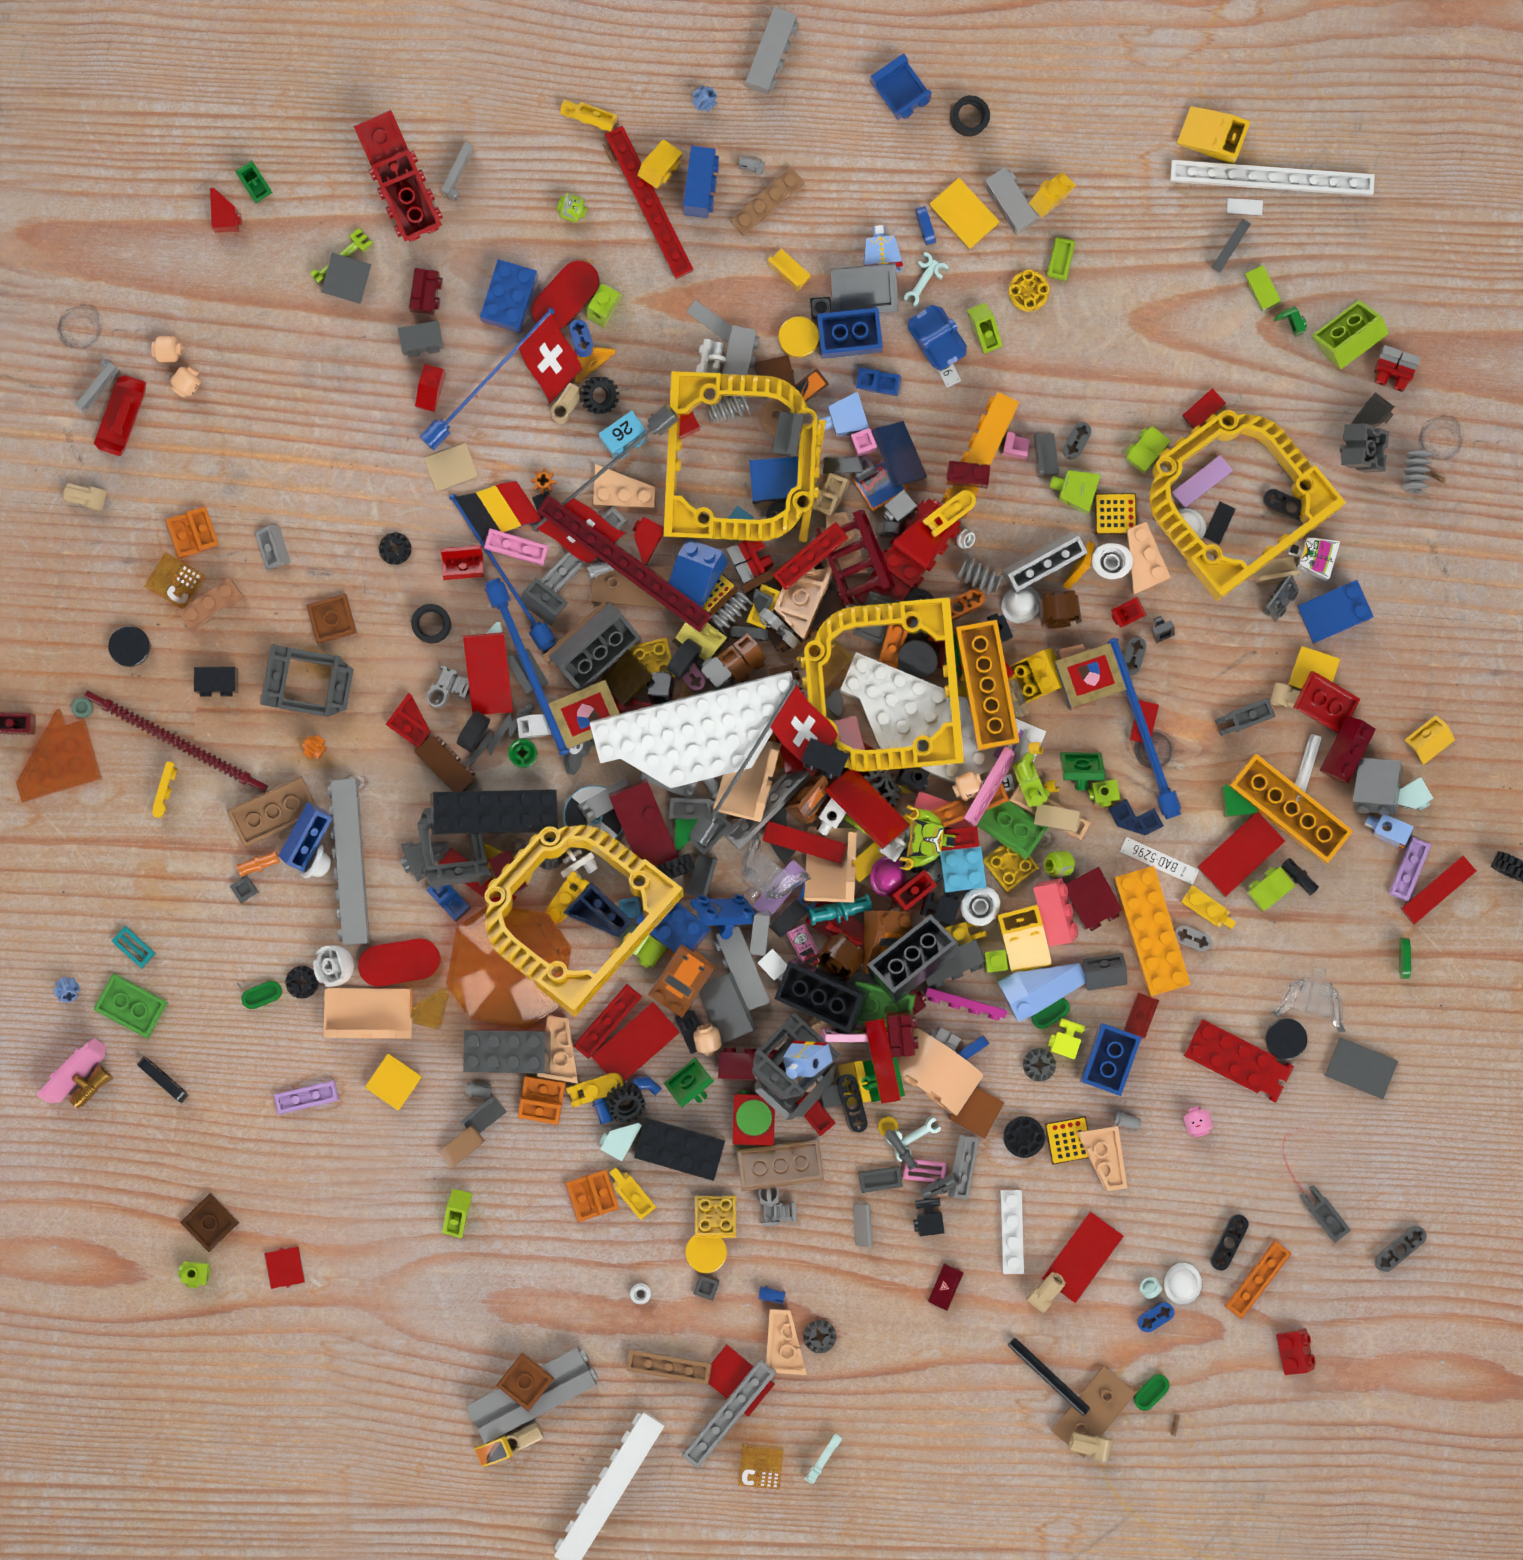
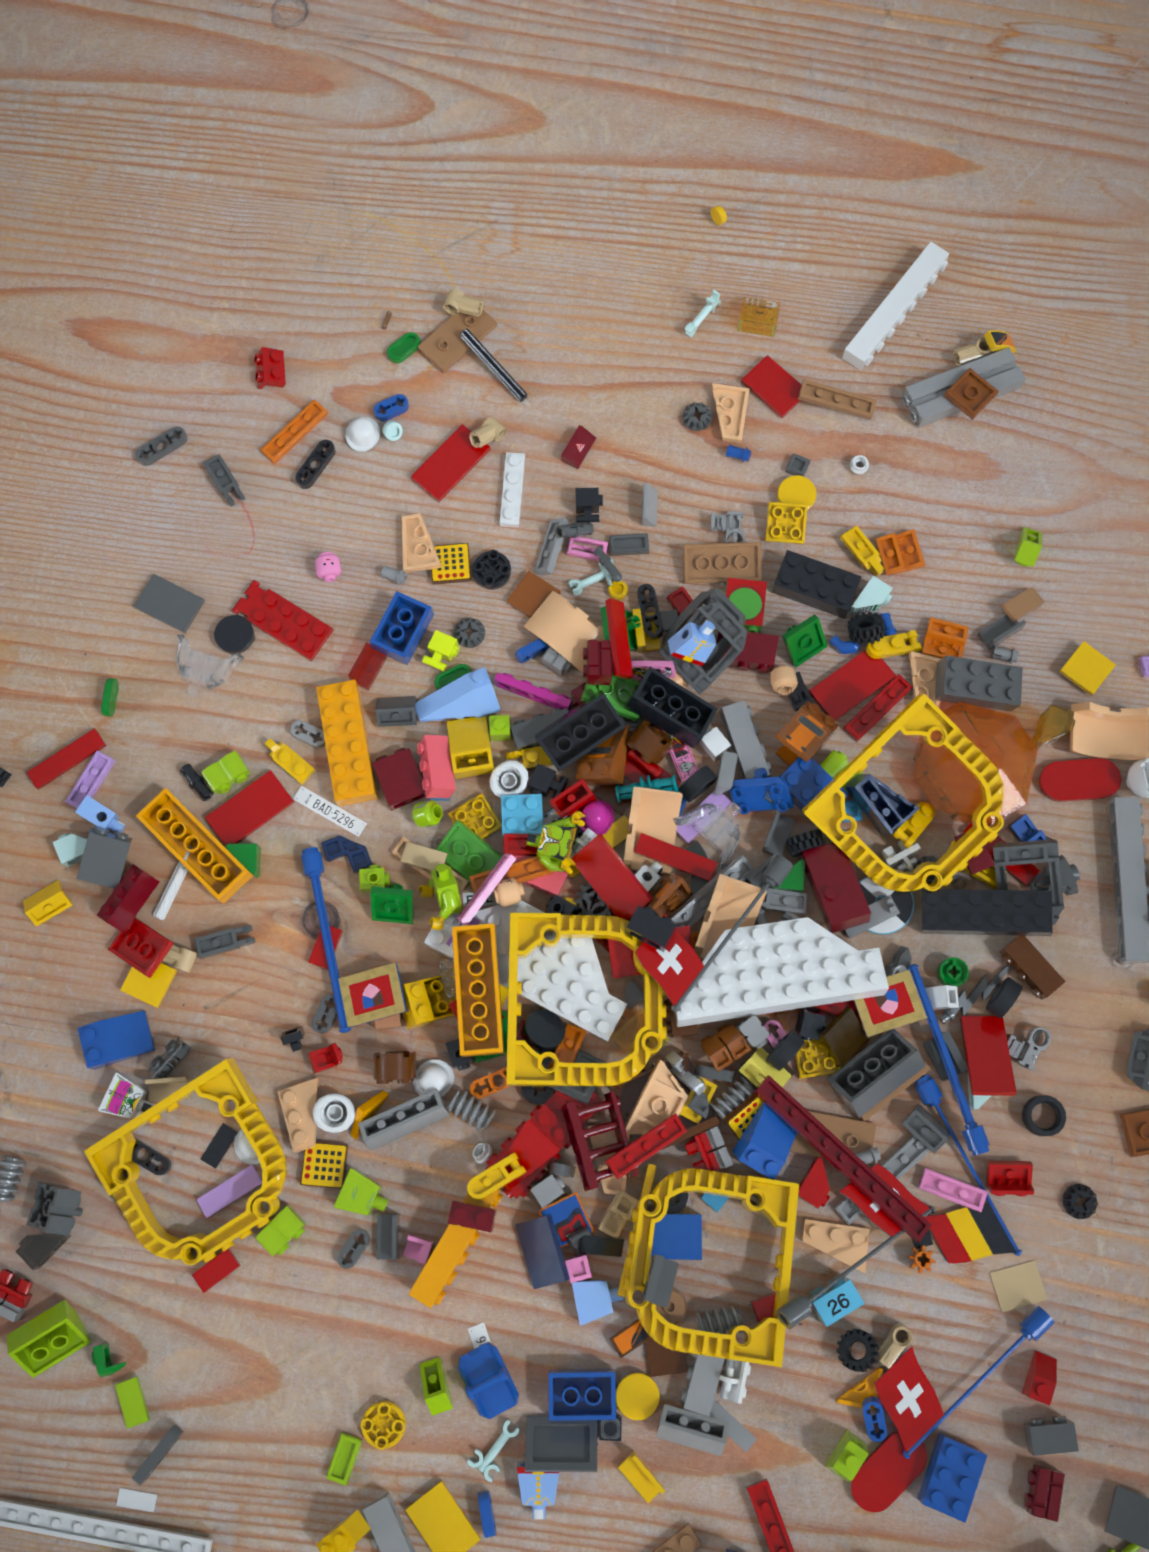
camera: 170 degrees left, 10 degrees down
(409, 722) = (1067, 1015): red wing -> none
(727, 1008) = (762, 706): dark grey tile -> none
(729, 1413) = (784, 358): light grey tile -> none
(746, 312) = (692, 1430): none -> light grey brick
(878, 382) = (556, 1336): blue slope -> none

